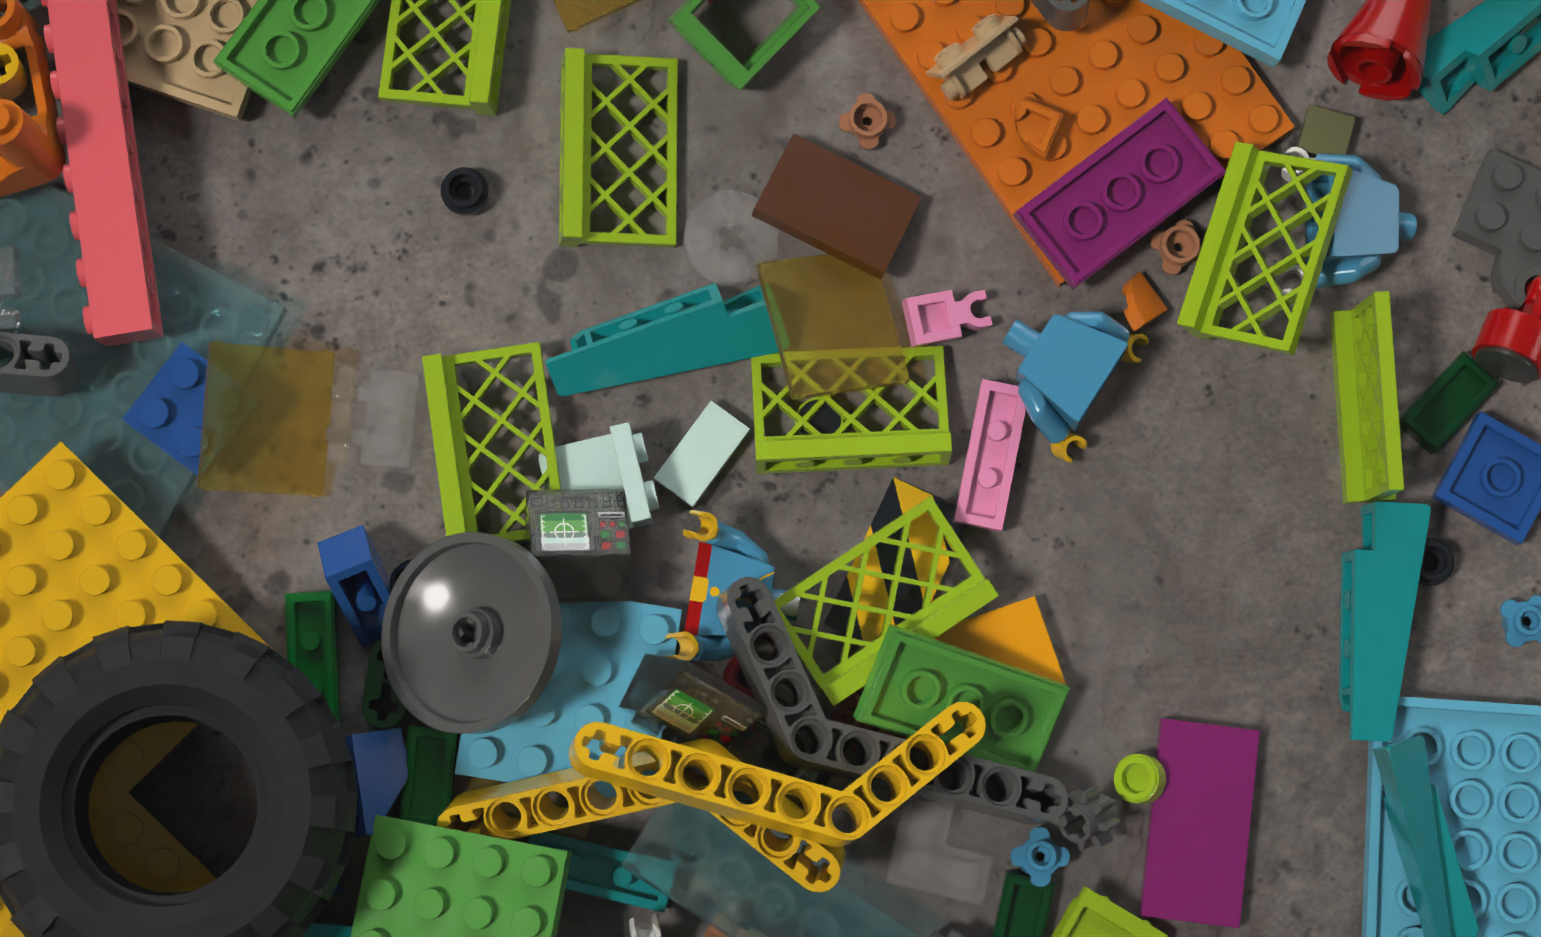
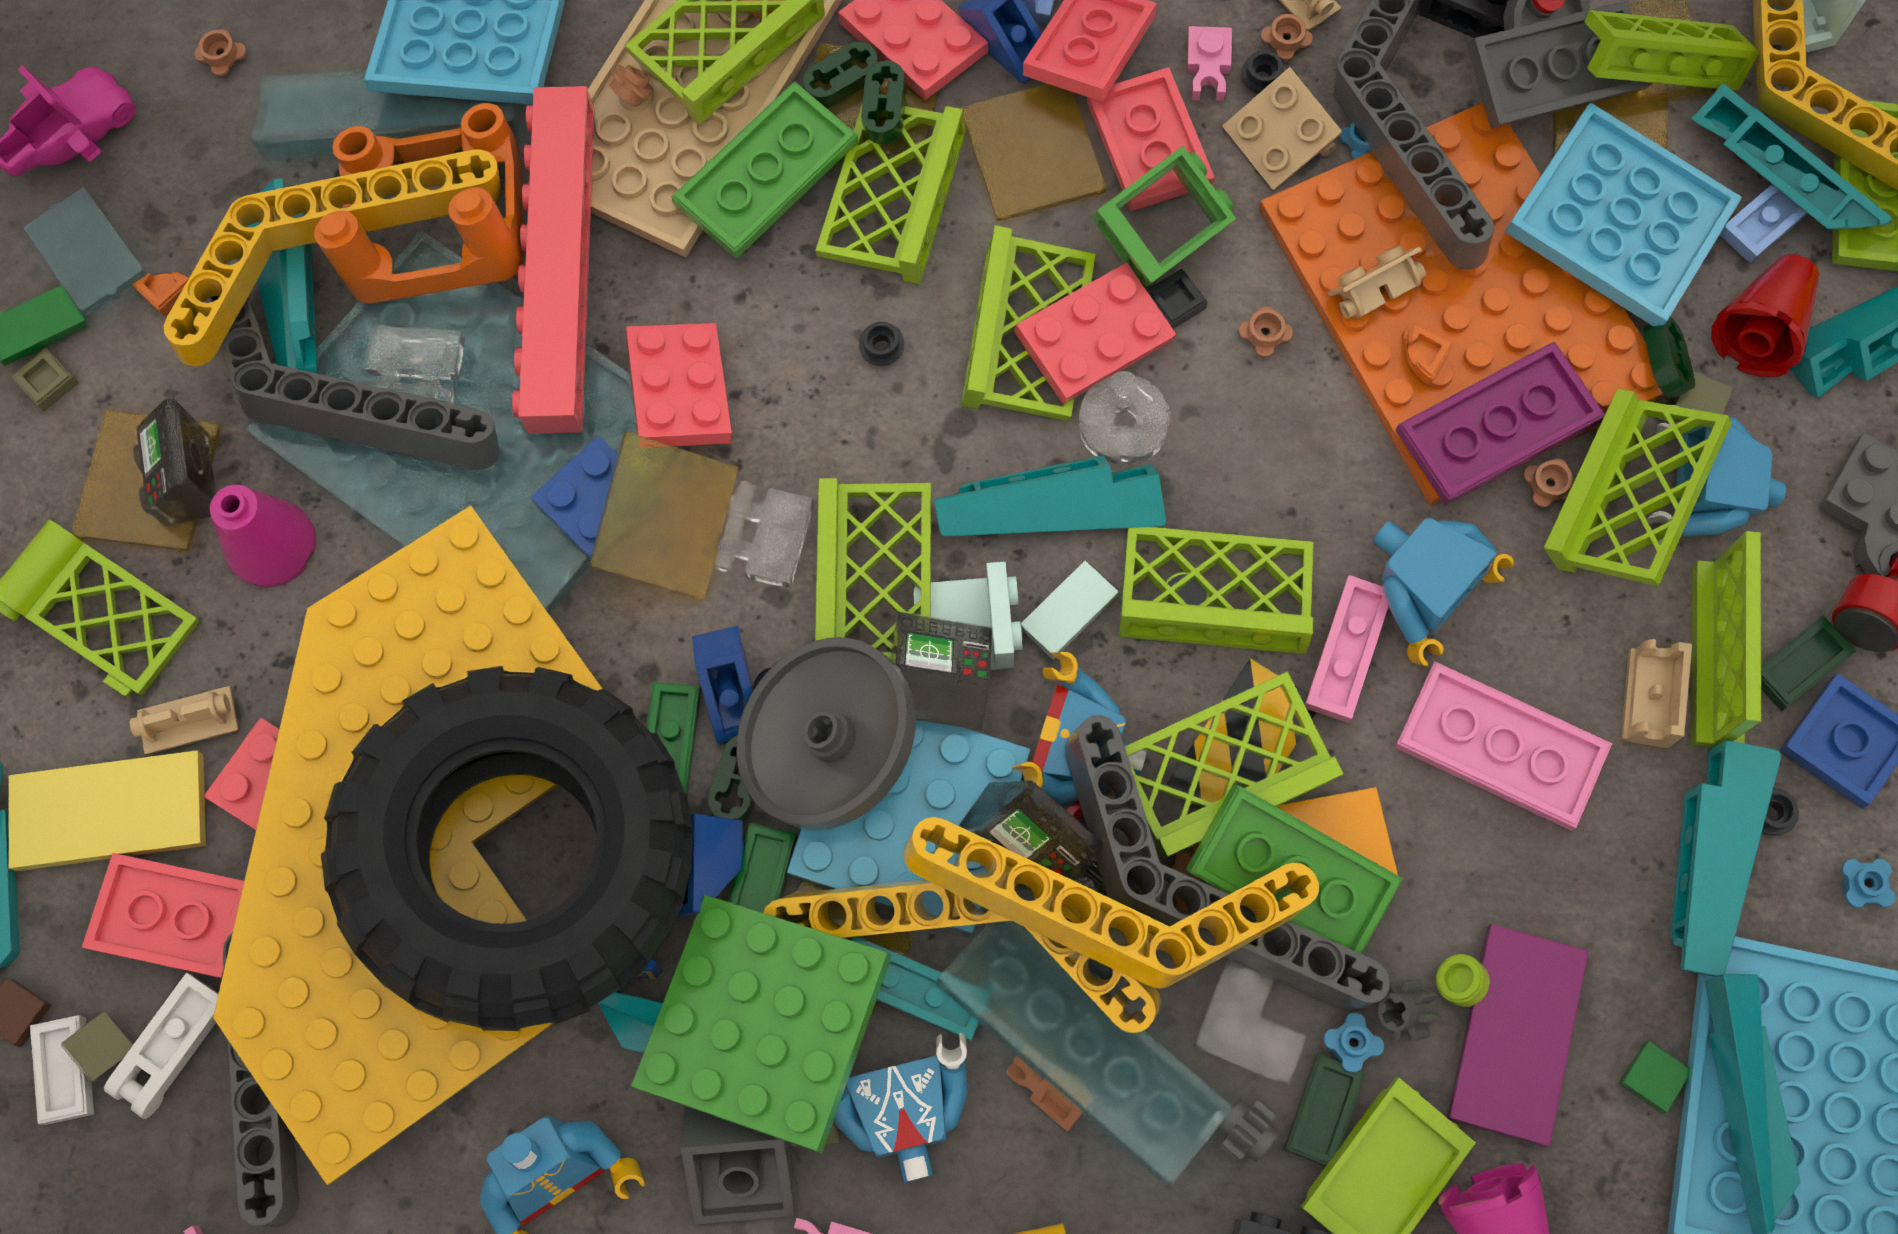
camera: 15 degrees right, 10 degrees down
(256, 270) = (678, 384): none -> coral plate
(688, 149) = (1094, 333): none -> coral plate
(768, 97) = (1177, 298): none -> black tile
(831, 326) = (1210, 504): clear yellow piece -> none
(836, 206) = (1228, 401): reddish brown tile -> none
(938, 317) = (1313, 515): bright pink plate -> none
(1142, 302) = (1511, 527): orange tile -> none
(1156, 532) = (1503, 746): none -> bright pink tile
(1287, 97) = (1669, 358): none -> dark green beam
(1303, 458) = (1656, 694): none -> tan hinge
(1335, 844) = (1655, 1077): none -> green tile

